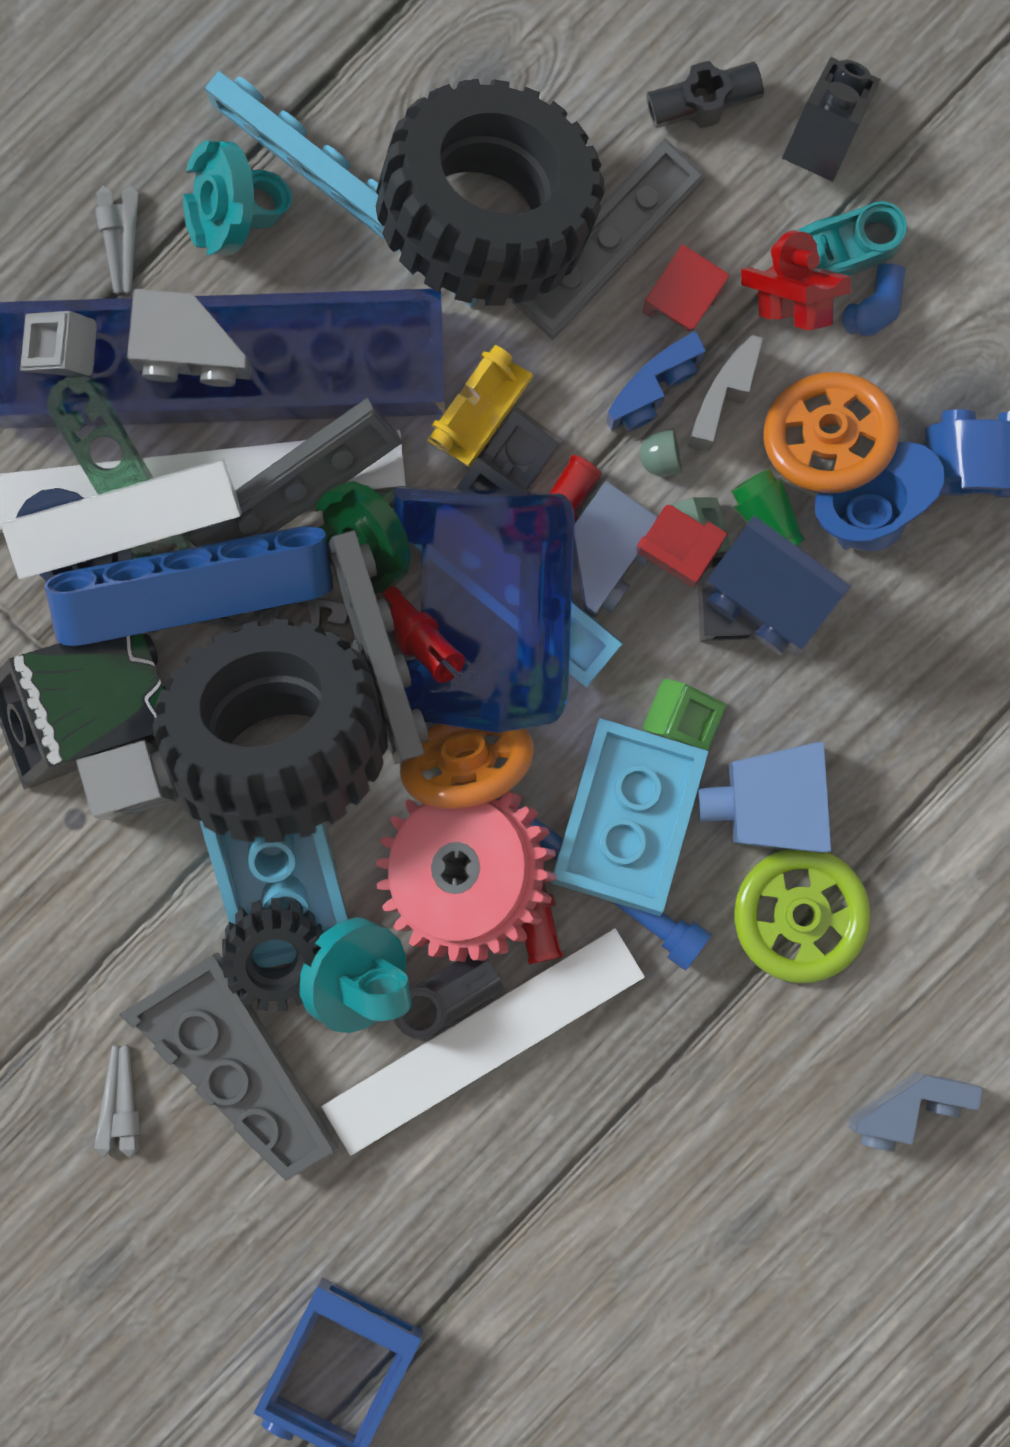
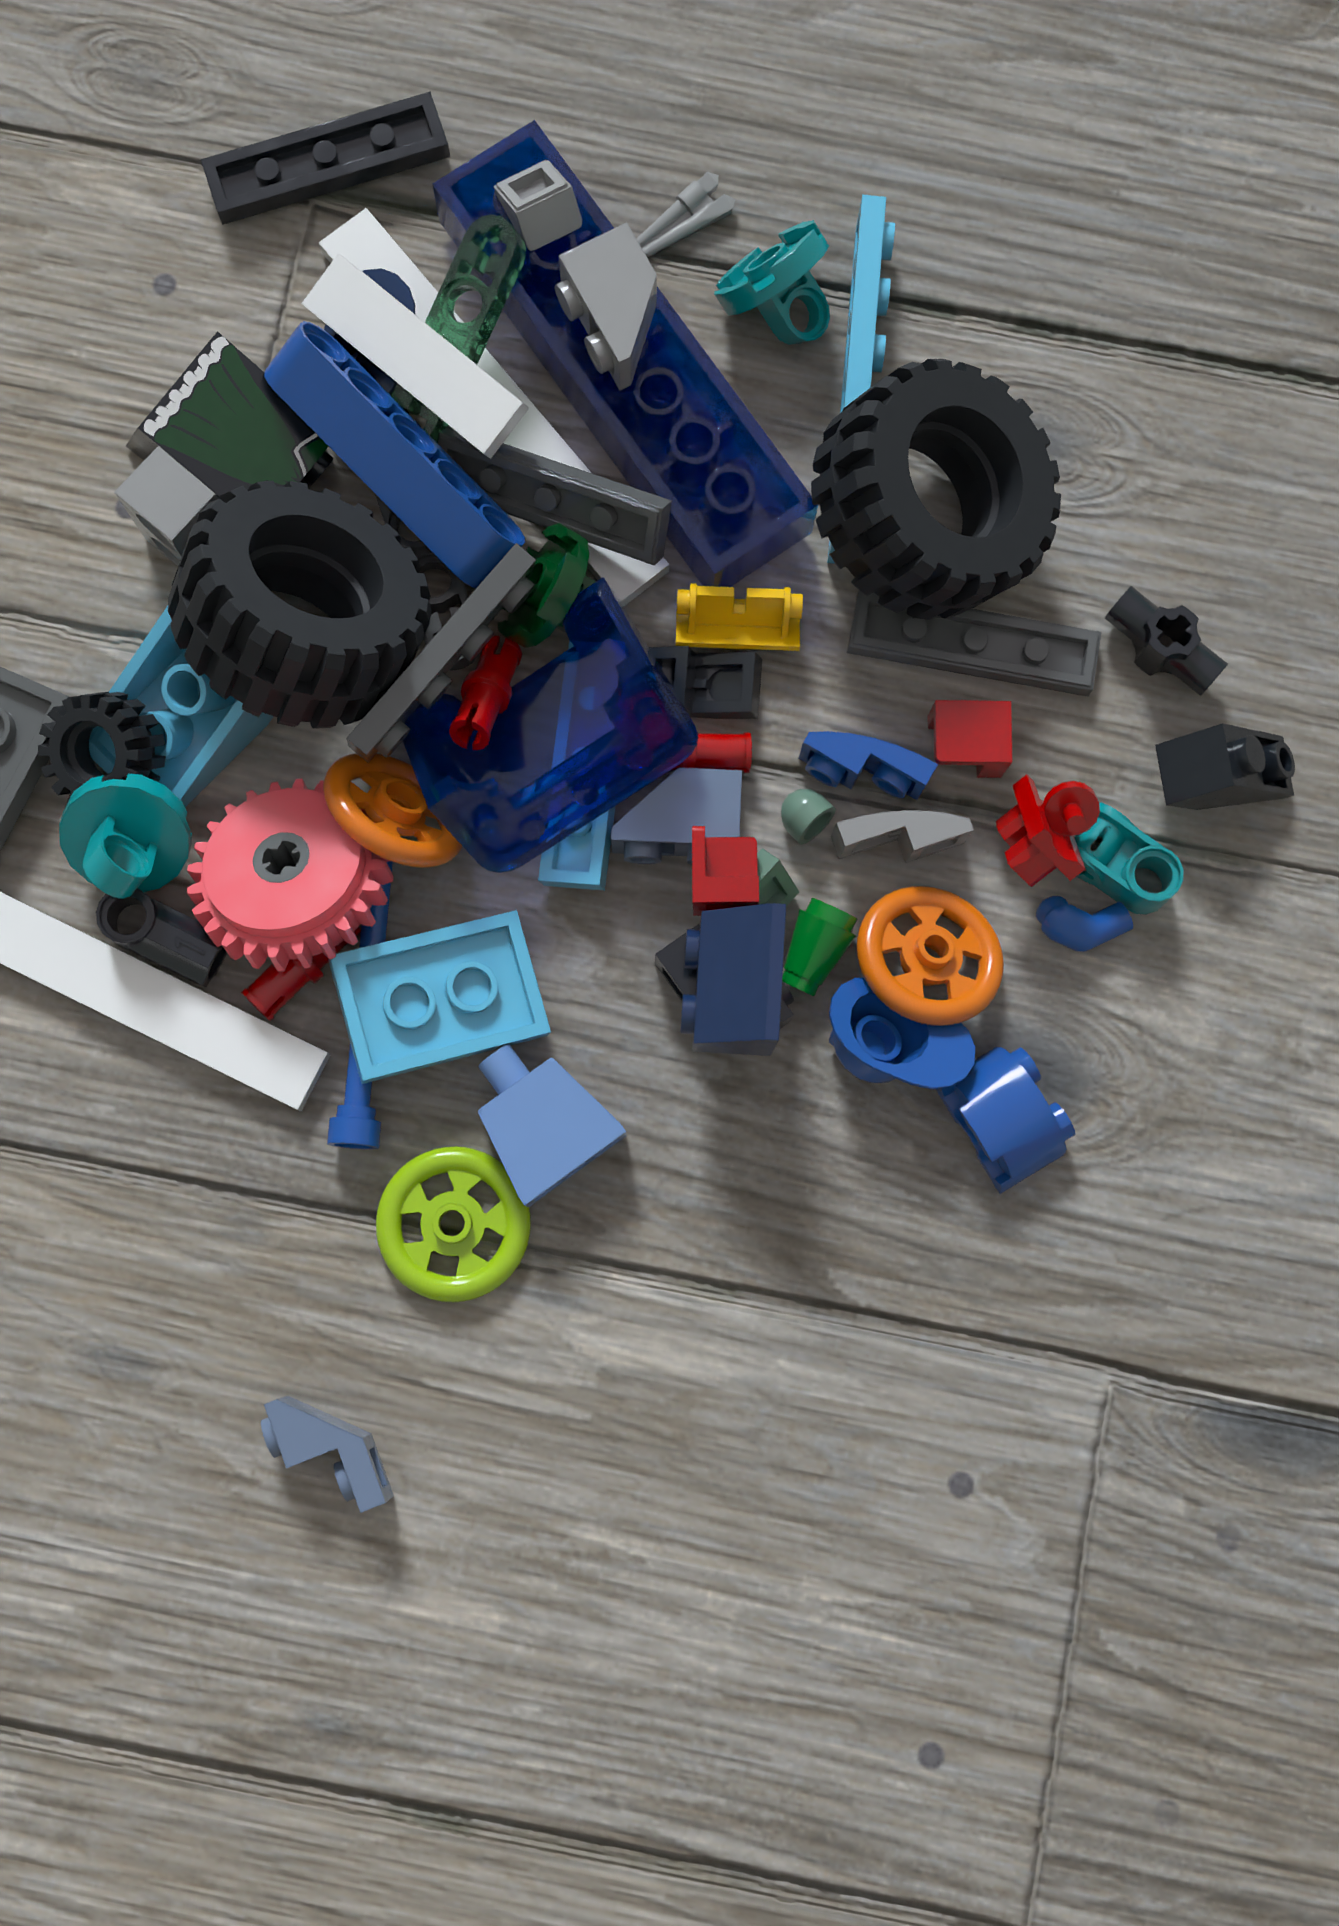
camera: 50 degrees right, 5 degrees down
(684, 714) = (573, 993): bright green slope -> none

